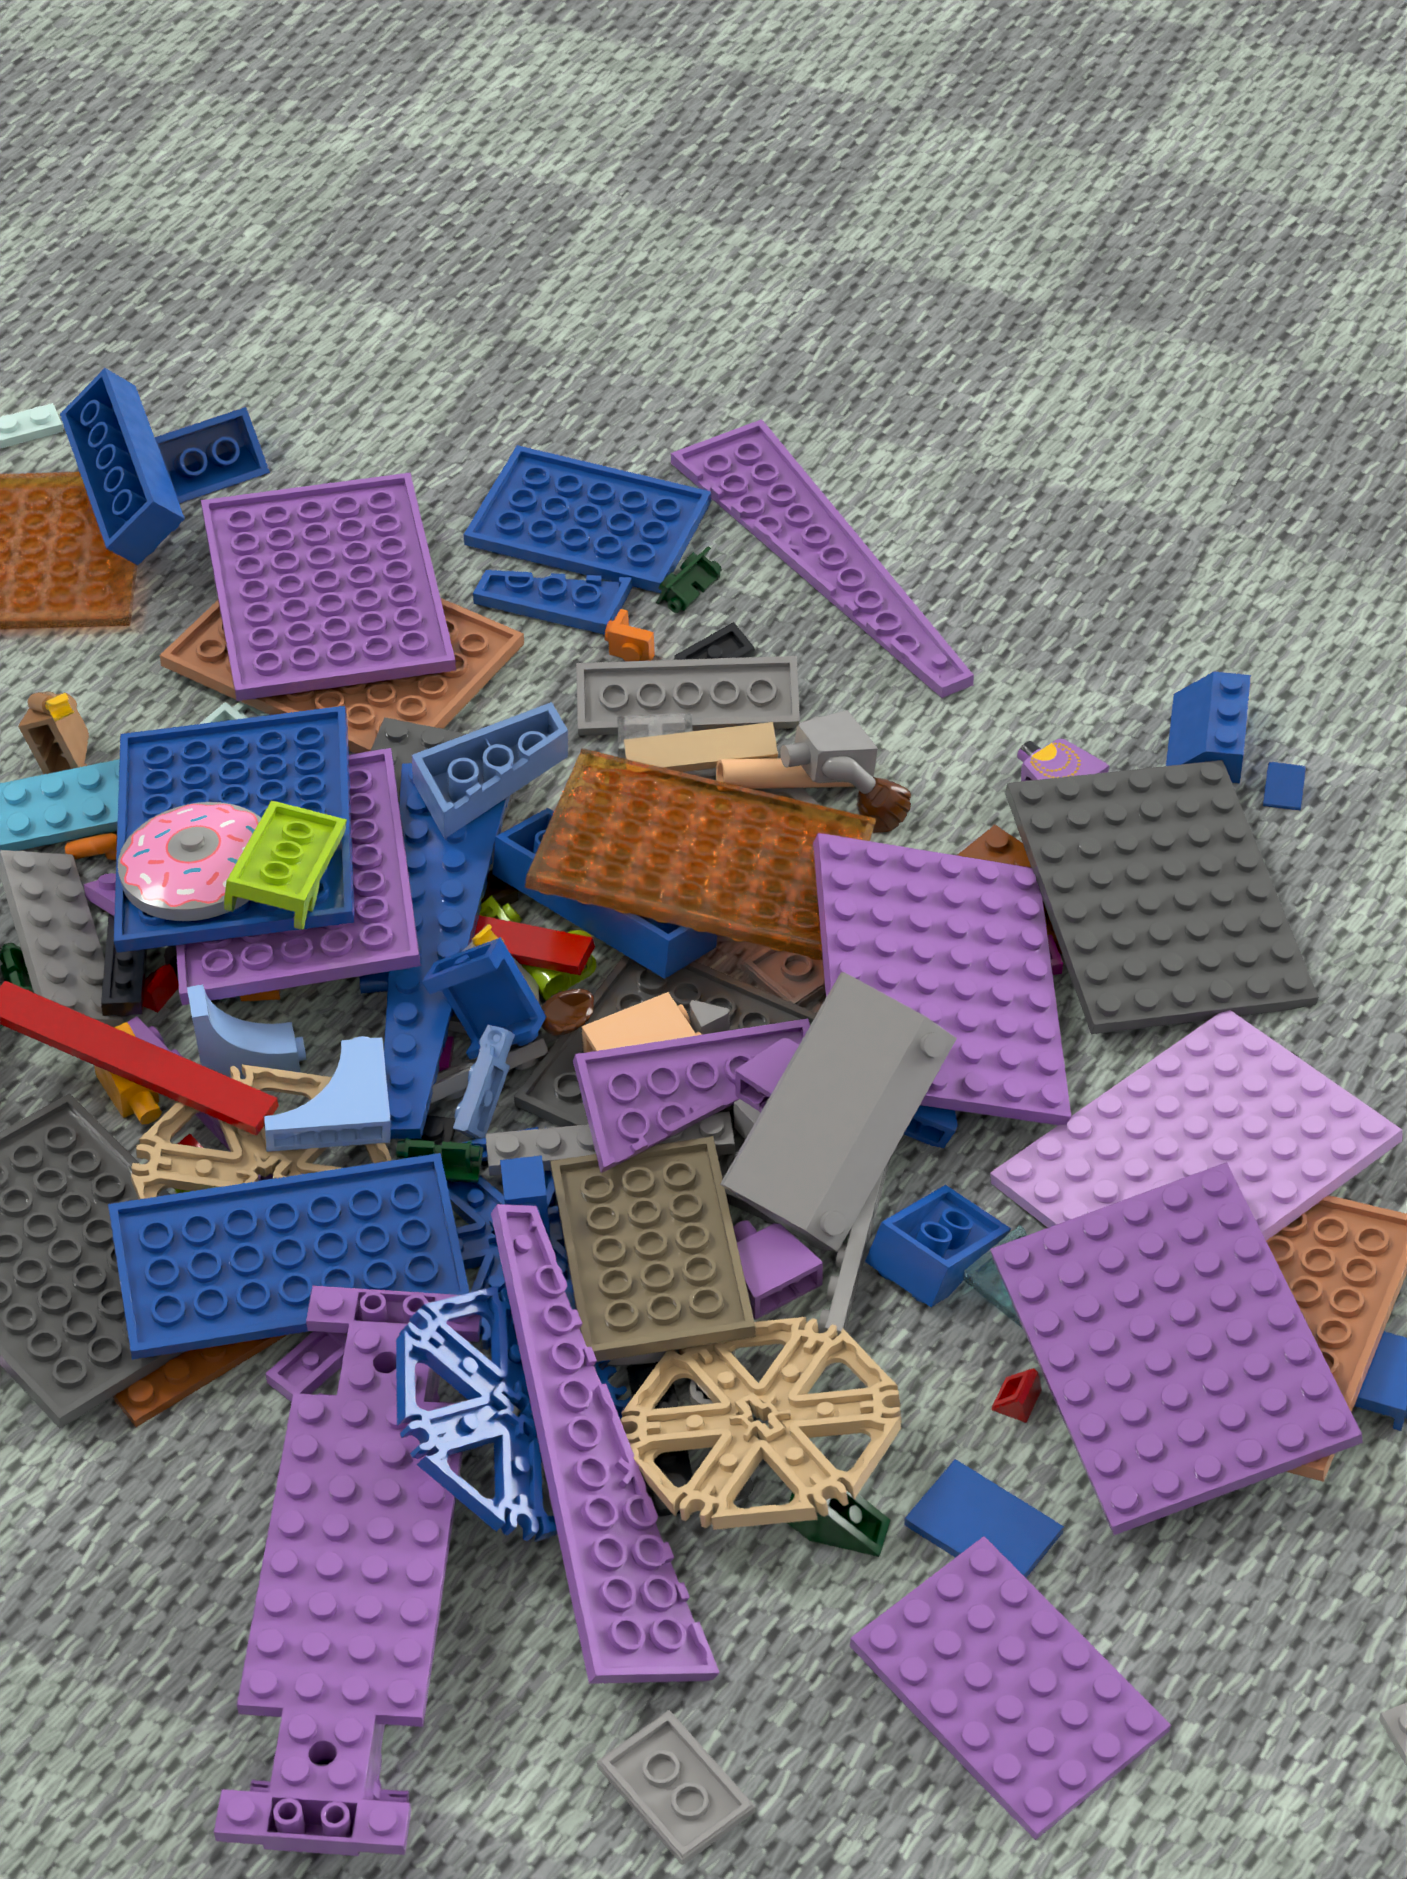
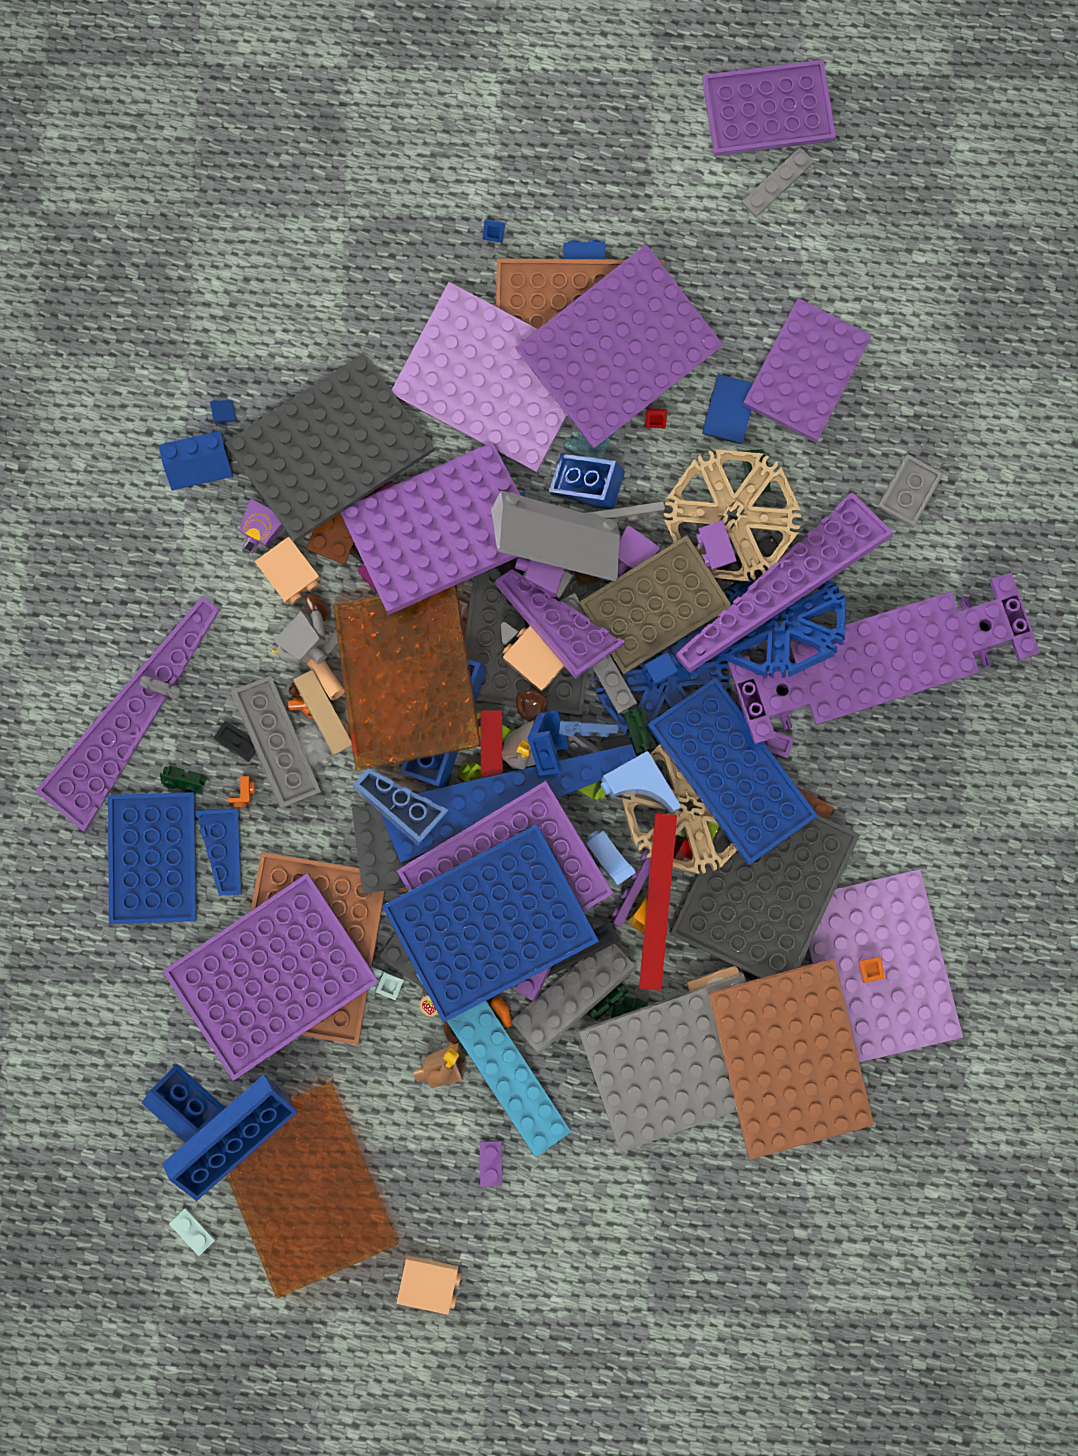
camera: 120 degrees left, 35 degrees up
(182, 859) = (530, 924): dish -> none
(285, 860) = (526, 868): lime hinge -> none
(712, 1365) = (717, 545): none -> medium lavender brick
(846, 583) = (160, 687): none -> light grey axle
(961, 788) = (288, 571): none -> light nougat brick

